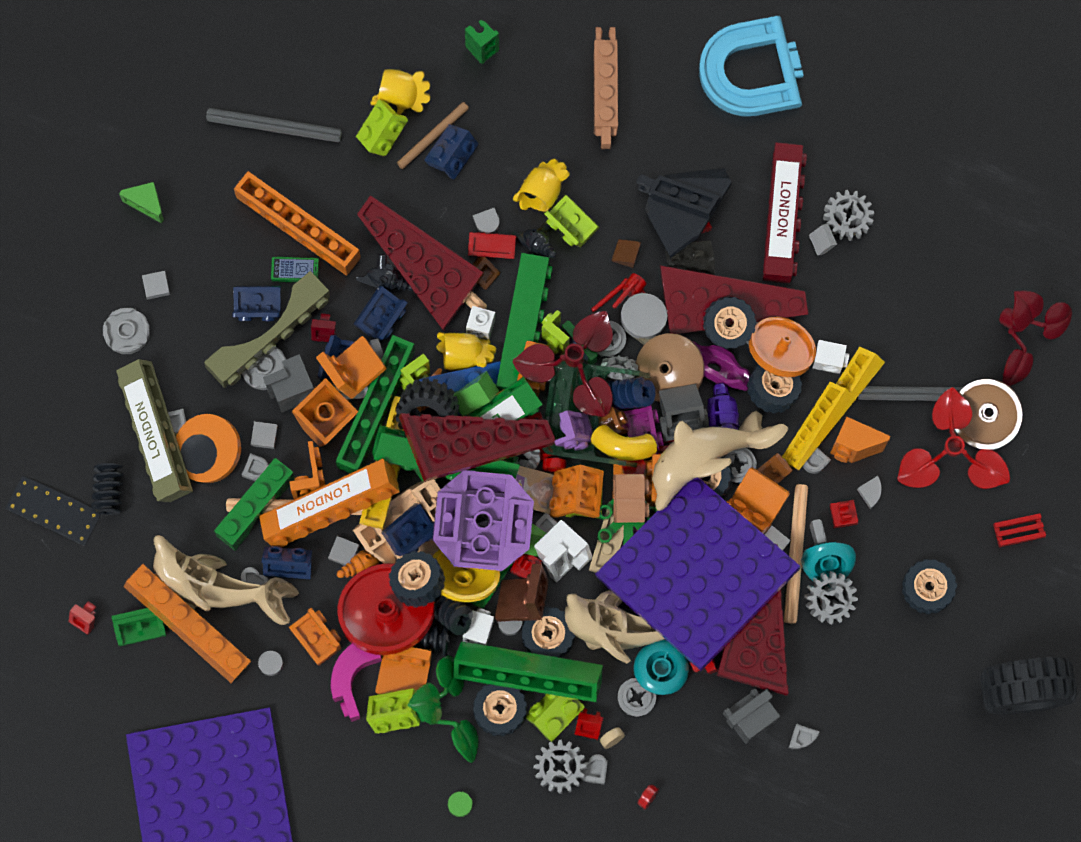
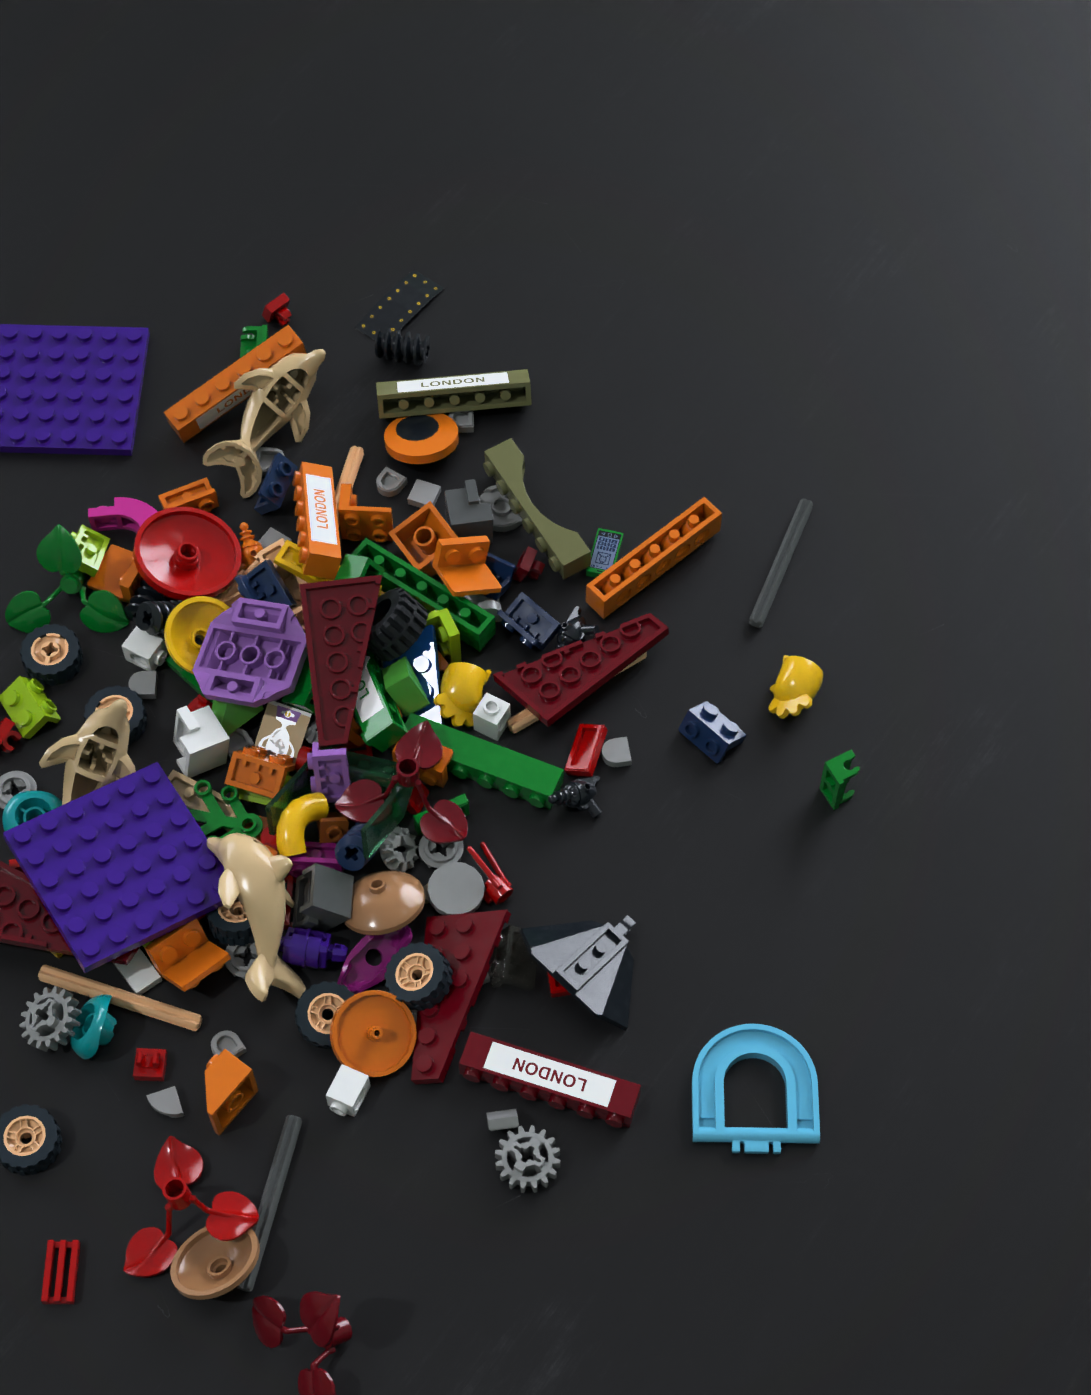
camera: 105 degrees right, 15 degrees down
(126, 331) = (574, 394): light grey tile -> none
(144, 199) = (713, 429): bright green slope -> none
(155, 285) = (618, 426): light grey tile -> none
(242, 517) = (333, 451): green arch -> none
(257, 302) = (573, 506): dark blue bracket -> none
(270, 663) = (177, 460): light grey tile -> none
(381, 128) = (748, 656): lime bracket -> none
(422, 589) = (204, 578): black wheel -> none
(432, 135) = (737, 717): medium nougat piece -> none
(489, 270) = (556, 737): reddish brown slope -> none
(523, 597) = (159, 693): copper bracket -> none
(528, 671) = (74, 680): green brick -> none
(544, 184) = (645, 811): yellow piece -> none
(553, 335) = (454, 781): lime bracket -> none
(571, 221) = (592, 835): lime bracket -> none
(605, 87) = (759, 908): nougat hinge -> none
(626, 252) = (542, 893): reddish brown slope -> none
(629, 498) = (232, 814): nougat brick -> none
(775, 468) = (223, 988): dark orange bracket -> none
(817, 532) = (133, 1024): light grey tile -> none
(832, 406) = (286, 1081): yellow slope -> none

